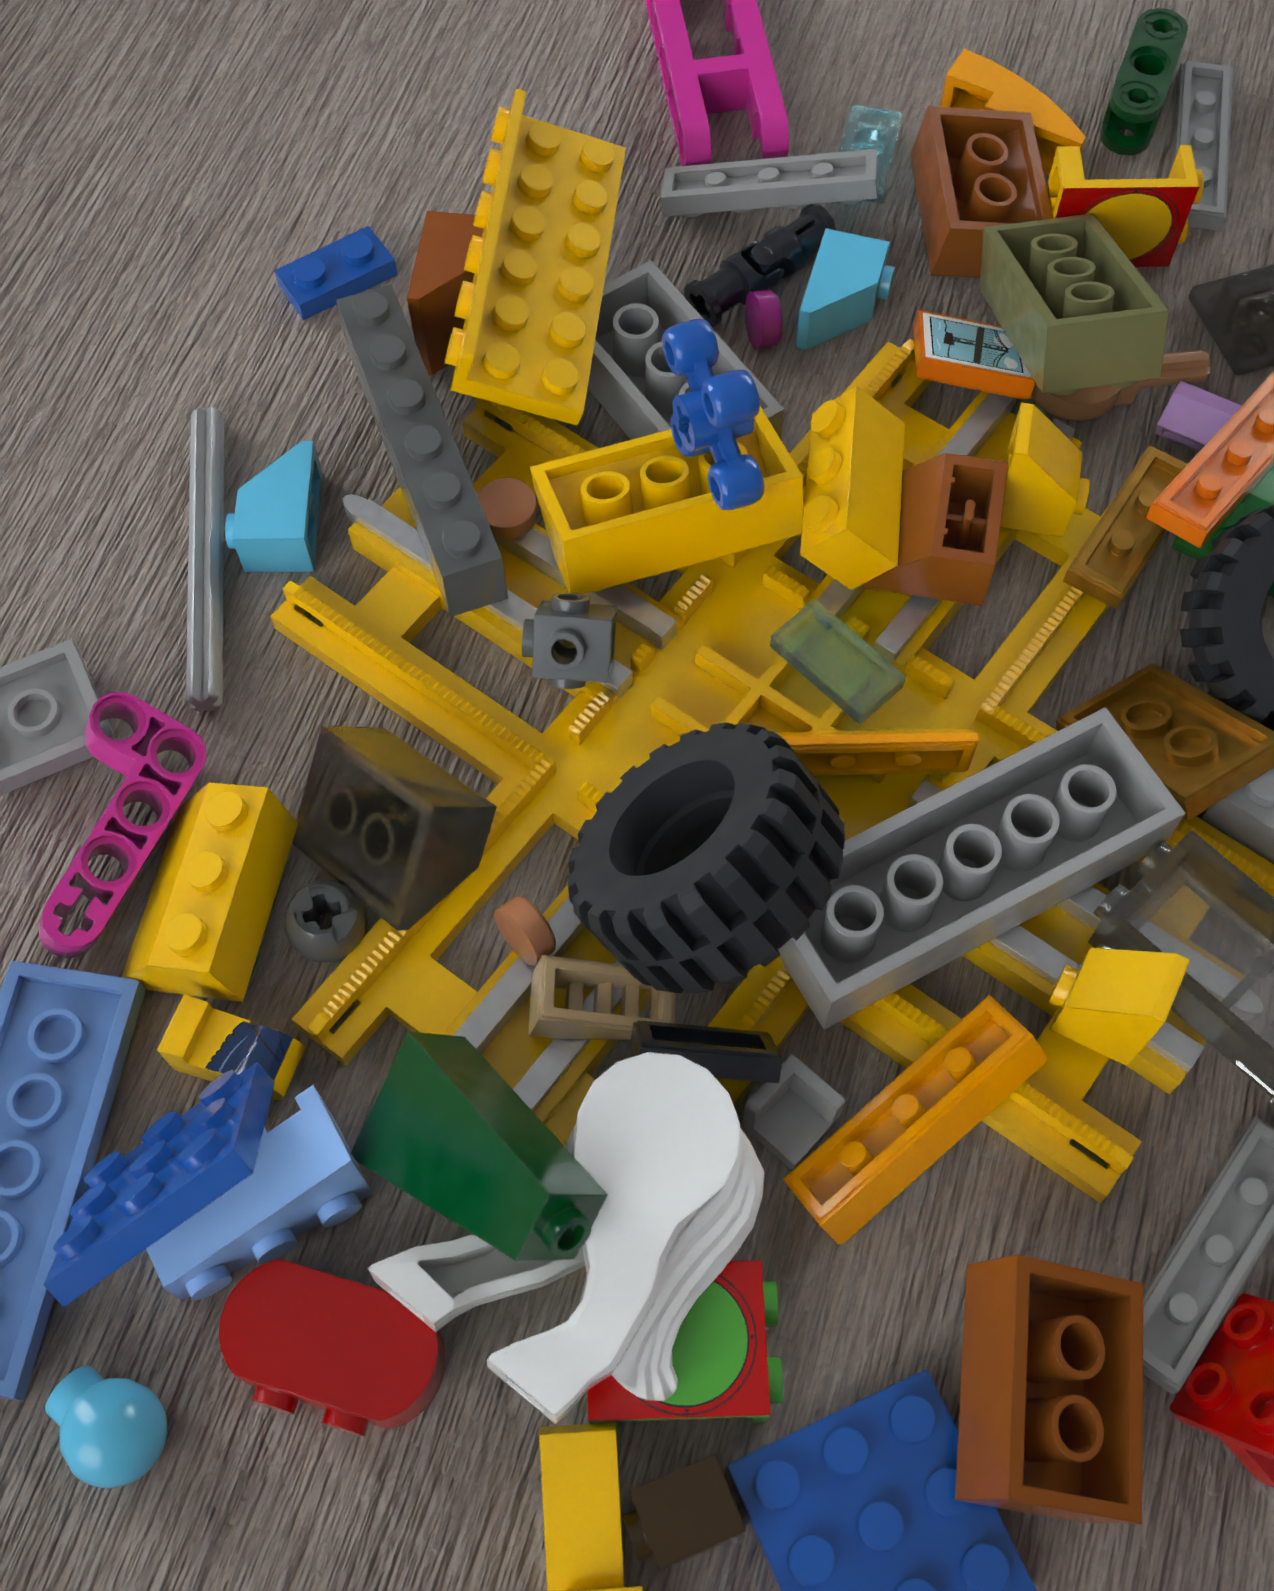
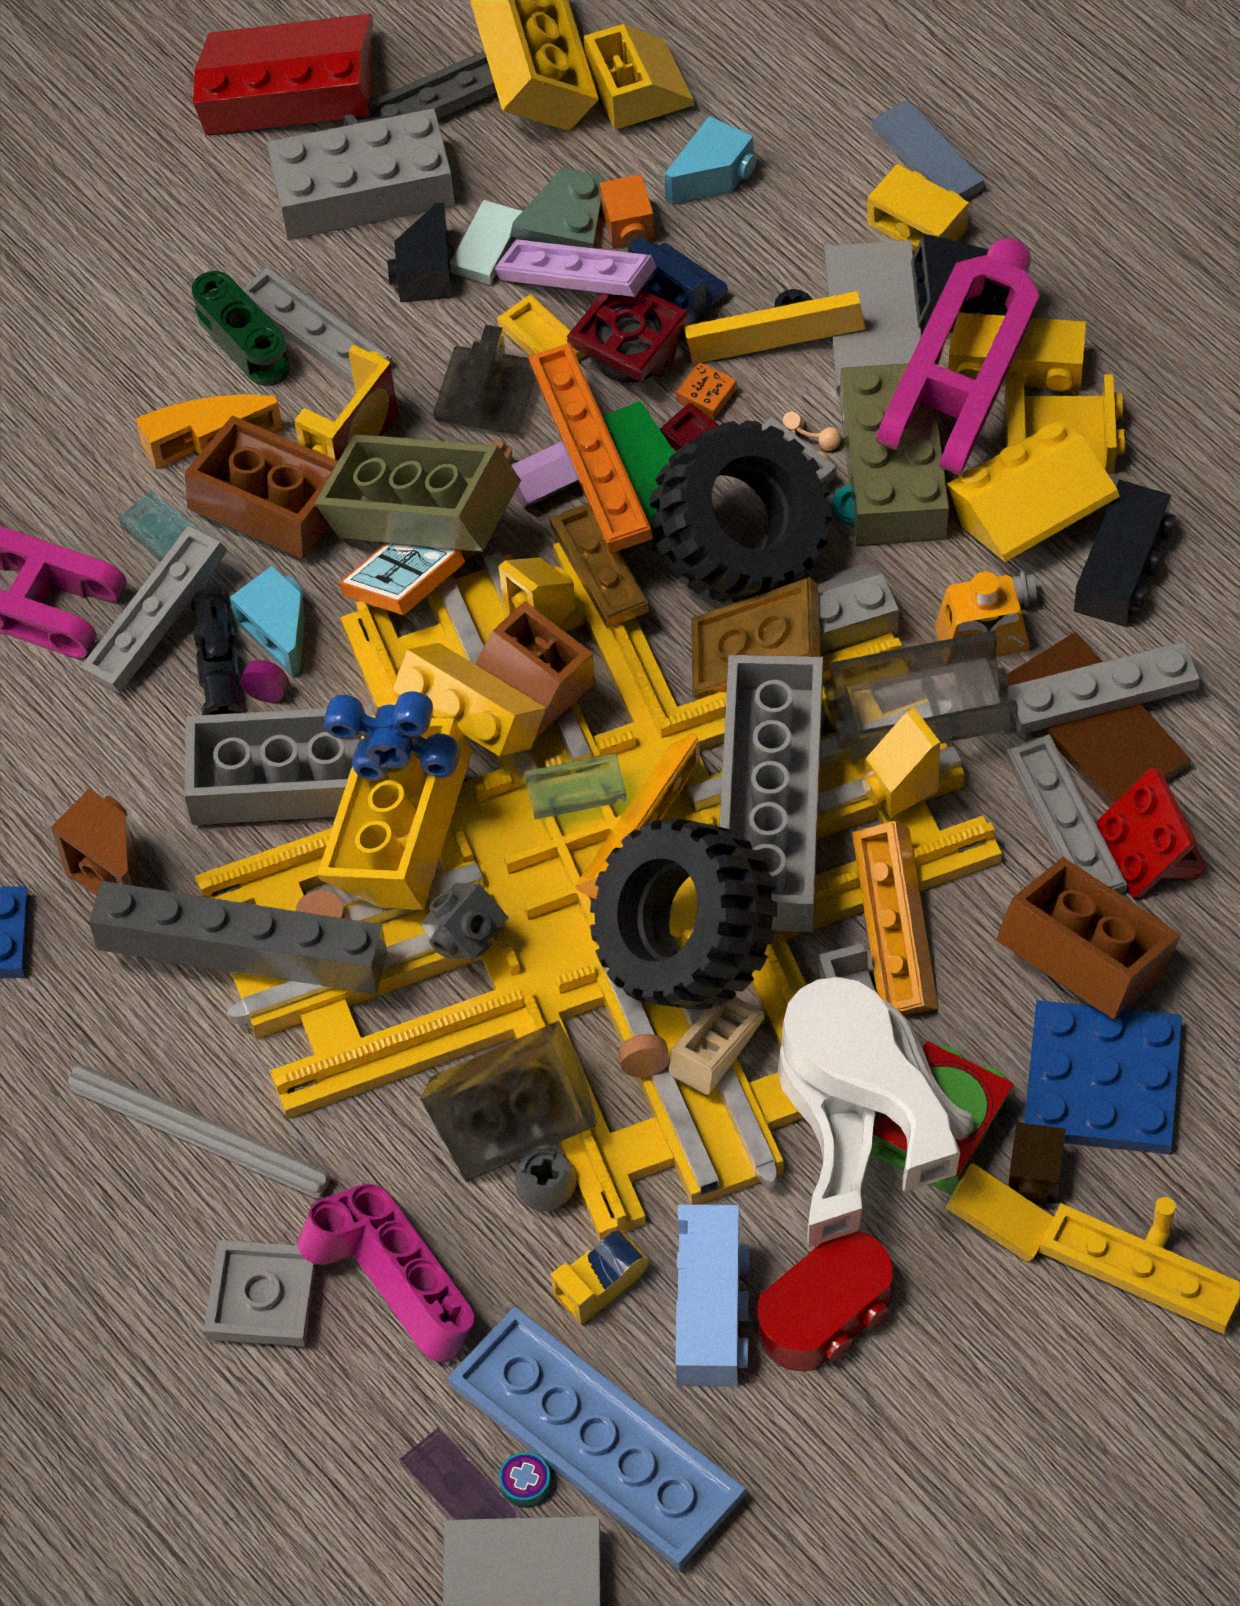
camera: 55 degrees left, 5 degrees down
(107, 1427) = (796, 1445): medium azure piece -> none
(162, 1181) = (679, 1317): blue plate -> none
(213, 893) = (481, 1238): yellow slope -> none
(279, 514) = (209, 1064): medium azure slope -> none
(477, 1152) = (772, 1135): dark green slope -> none
(536, 267) = (152, 781): yellow bracket -> none
(720, 1050) = (771, 1012): black tile -> none

